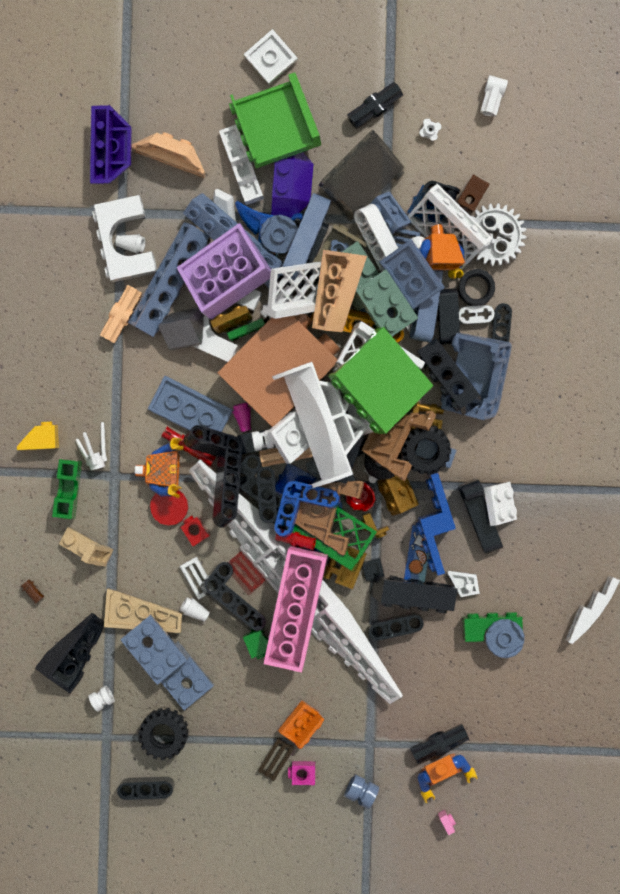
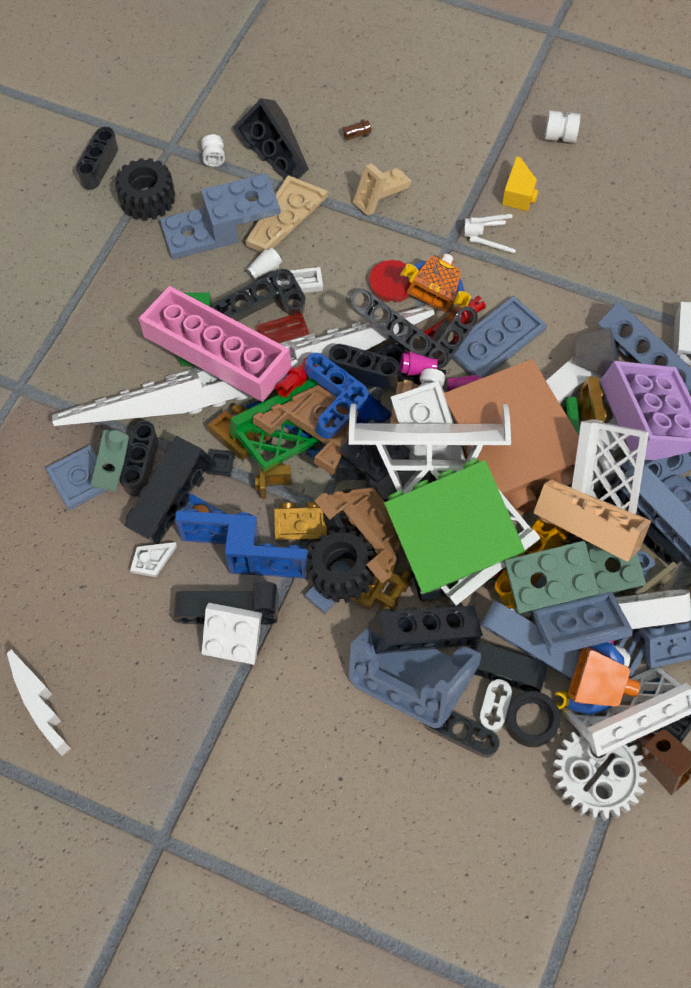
camera: 110 degrees right, 25 degrees down
(69, 479) = (438, 185): green arch -> none
(121, 313) = (636, 302): light nougat piece -> none
(203, 533) = (346, 284): red brick -> none
(249, 457) = (414, 363): none -> dark pink cone
(284, 745) = (49, 274): dark brown tile -> none
(301, 724) = (81, 321): orange bracket -> none
(308, 766) = (26, 304): dark pink brick -> none
(365, 502) = (314, 478): red hair -> none
(409, 644) = (111, 451): none -> sand green torso
(424, 663) = (73, 477): none -> sand blue tile
(475, 625) = (74, 588): green arch -> none
(505, 638) = (58, 570): sand blue tile -> none

